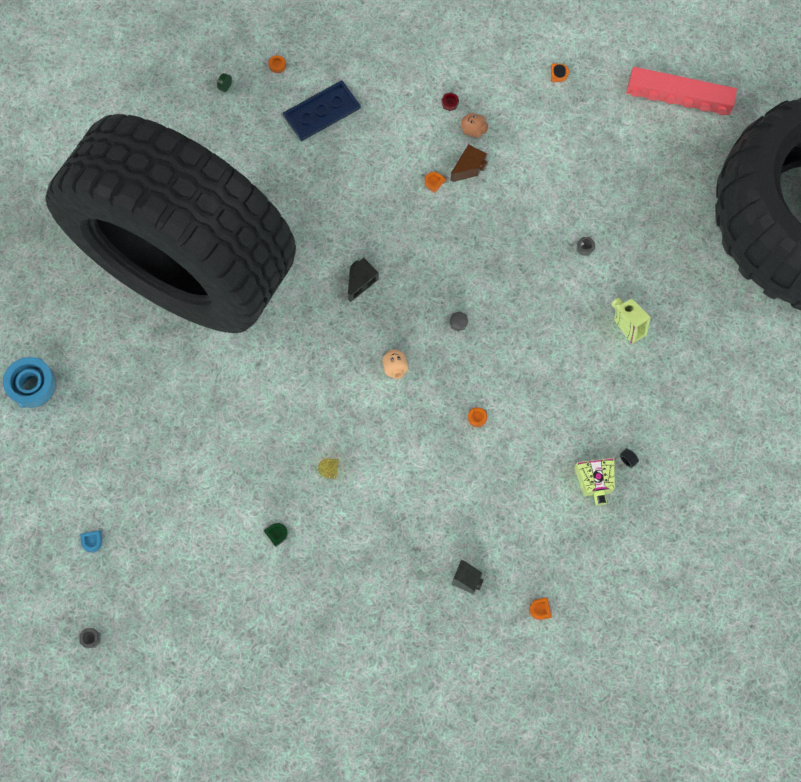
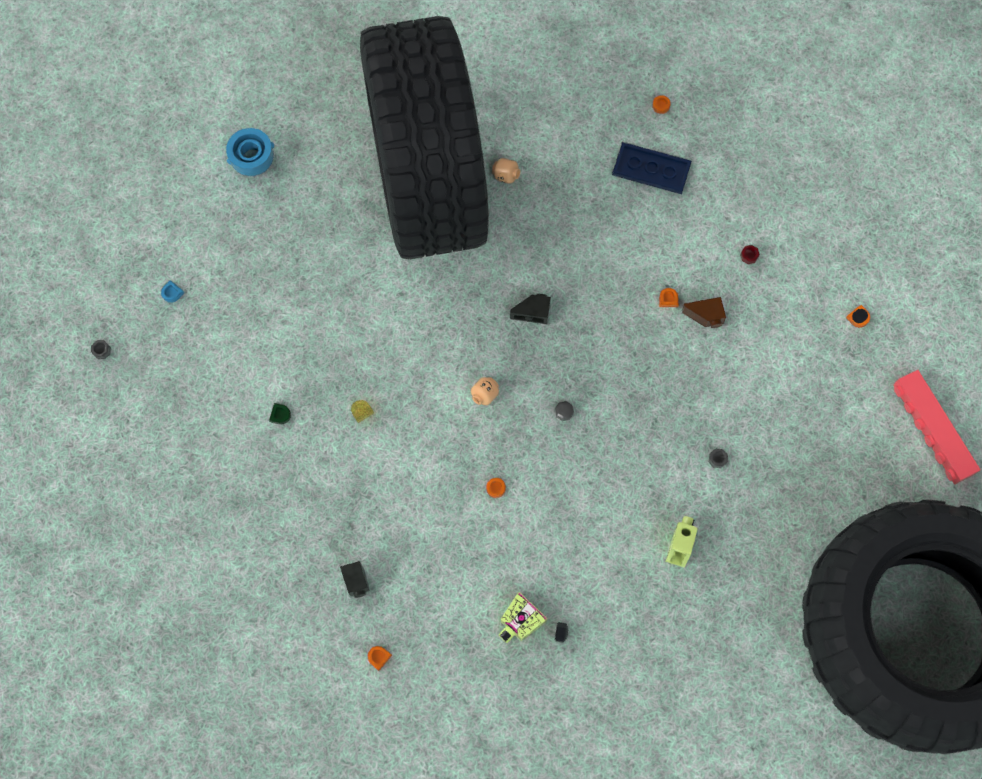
camera: 55 degrees right, 0 degrees up
(224, 82) = (608, 80): dark green tile -> none
(474, 125) = (745, 289): nougat head -> none

